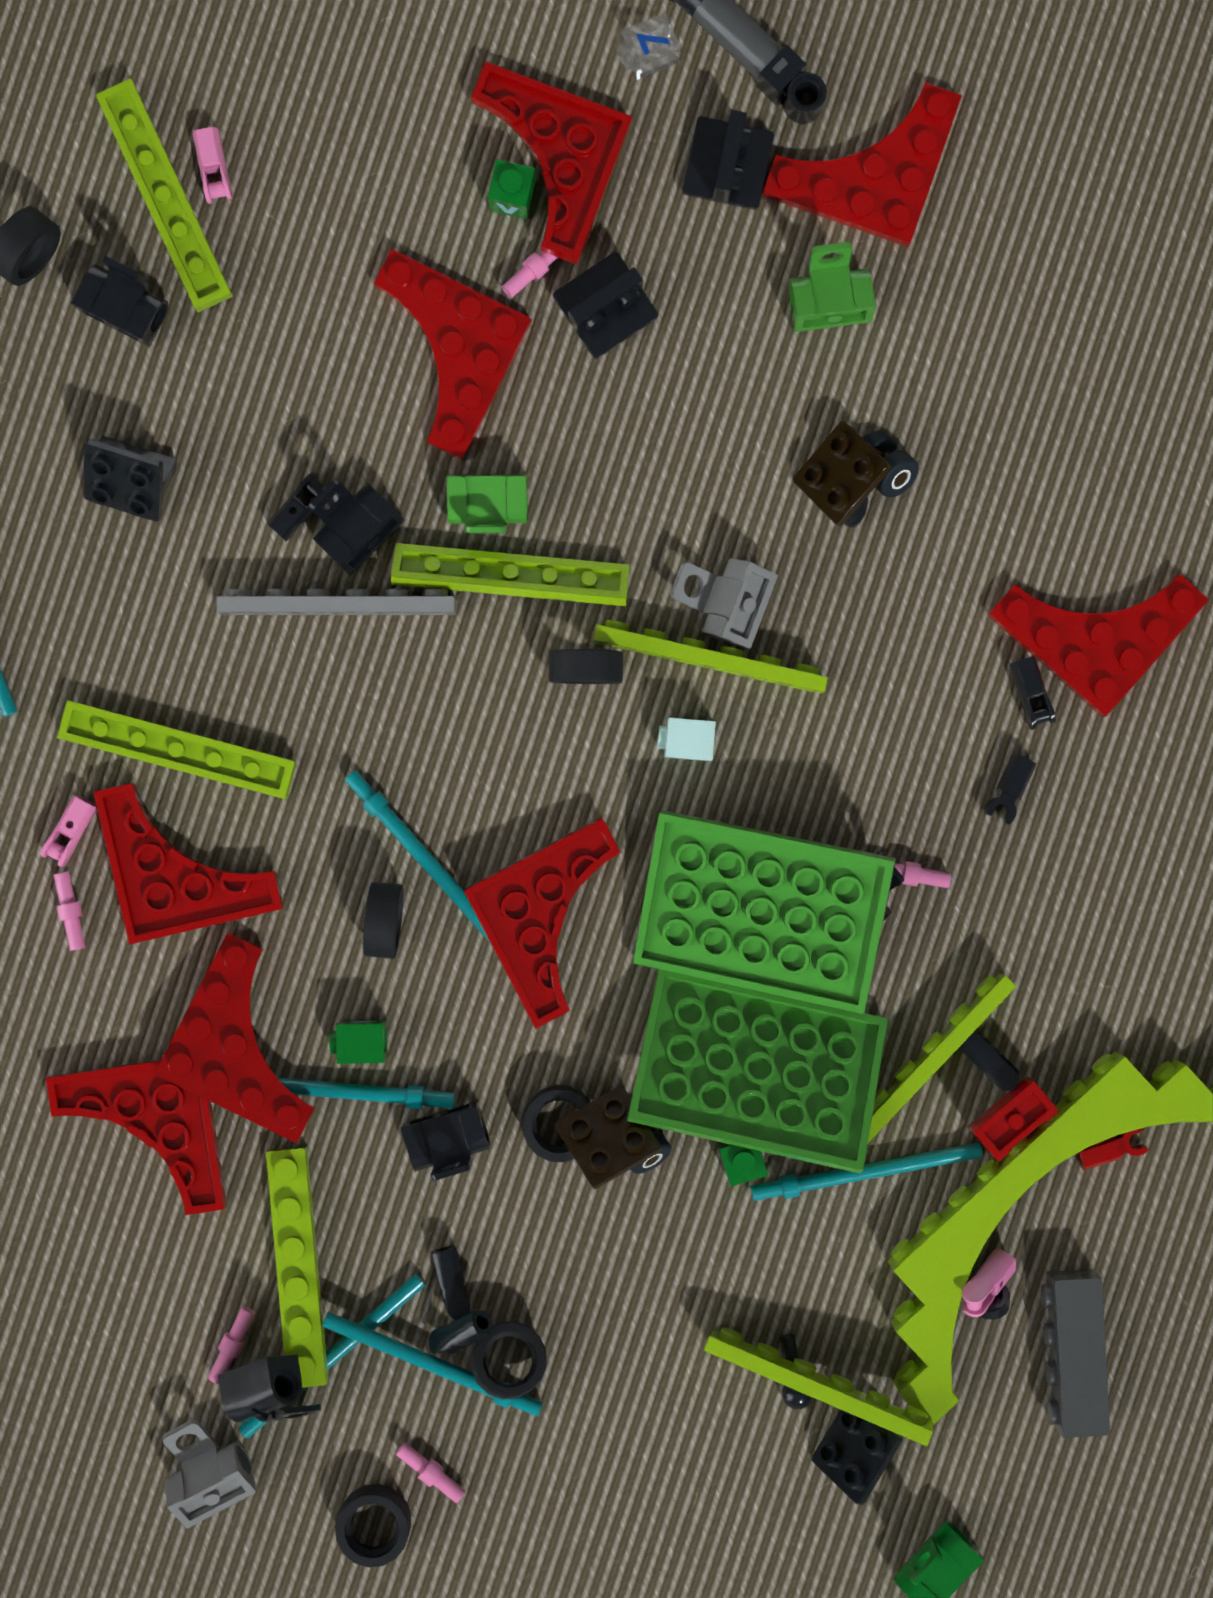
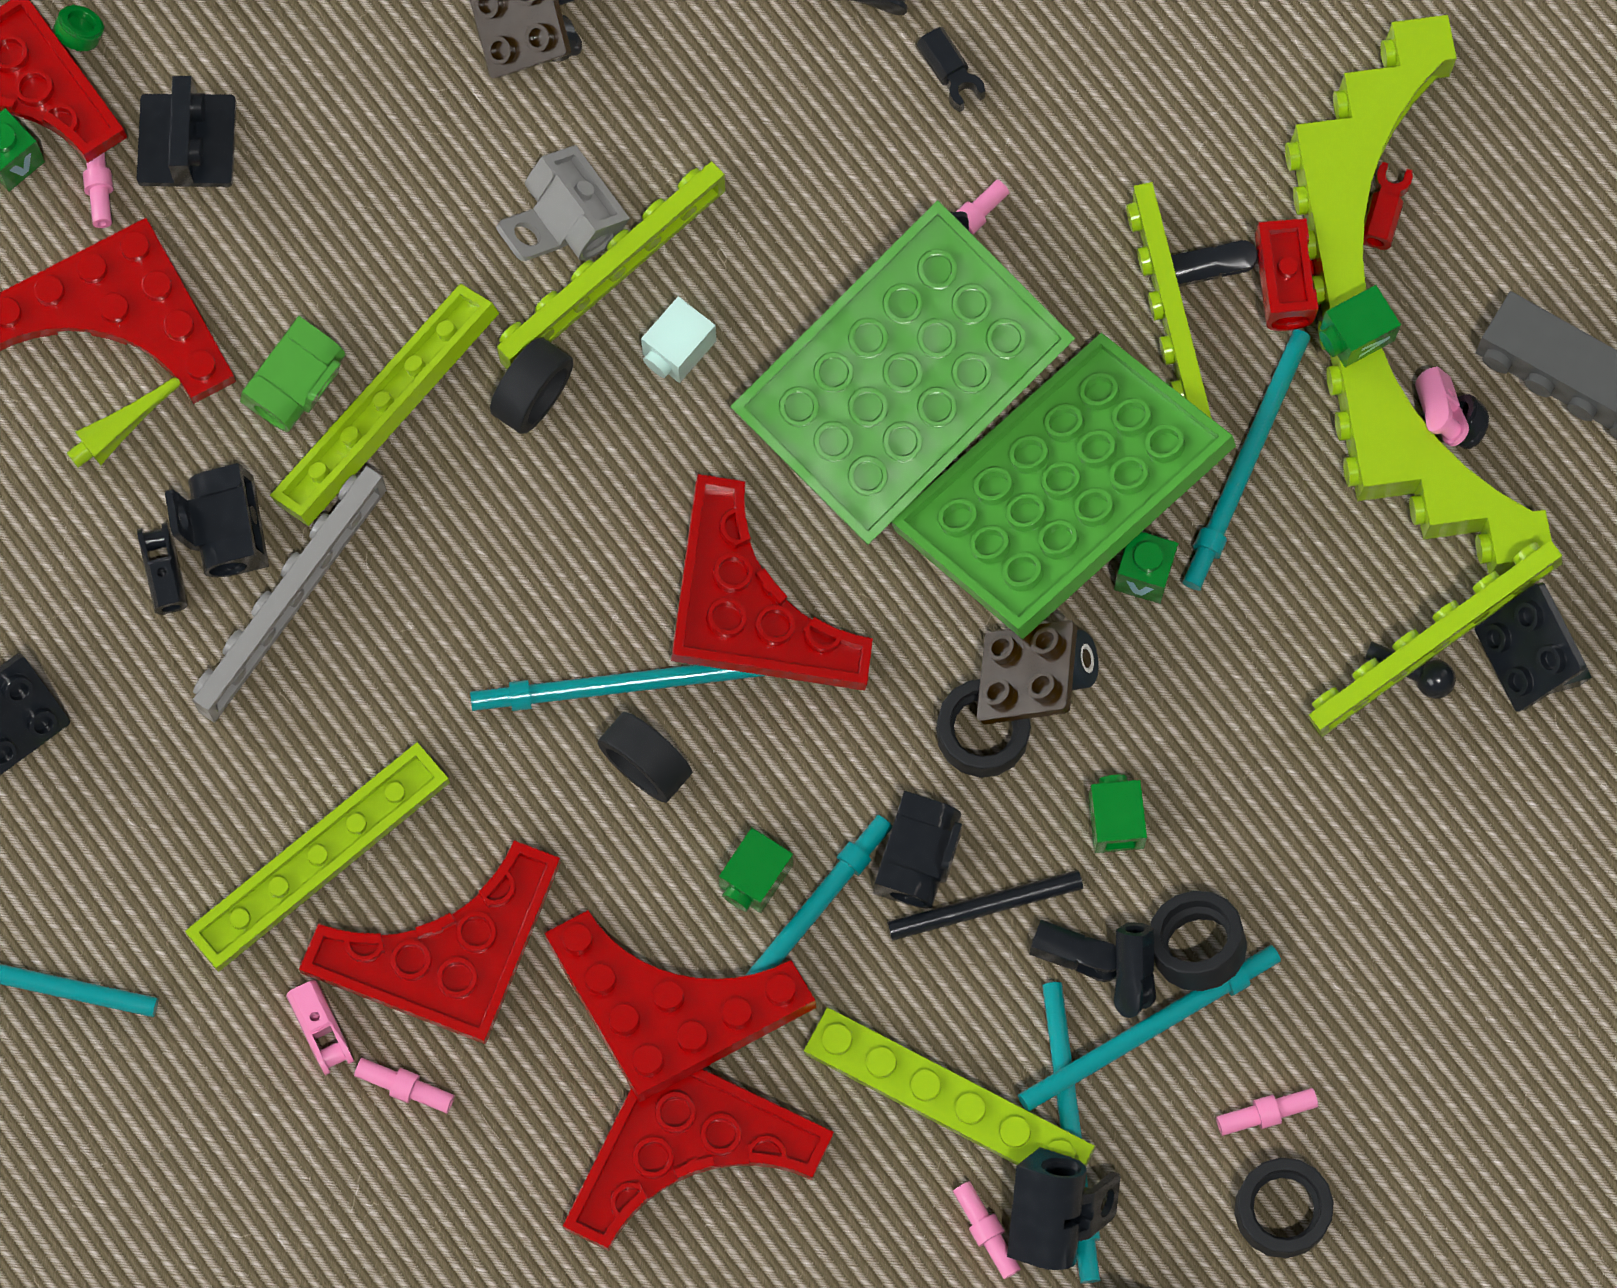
camera: 55 degrees left, 15 degrees down
(359, 402) = (106, 434): none -> lime piece
(444, 1201) = (985, 905): none -> black bar
(559, 1250) = (1117, 814): none -> green brick
(633, 173) = (78, 28): none -> green tile
(1002, 1200) = (1359, 326): none -> green brick

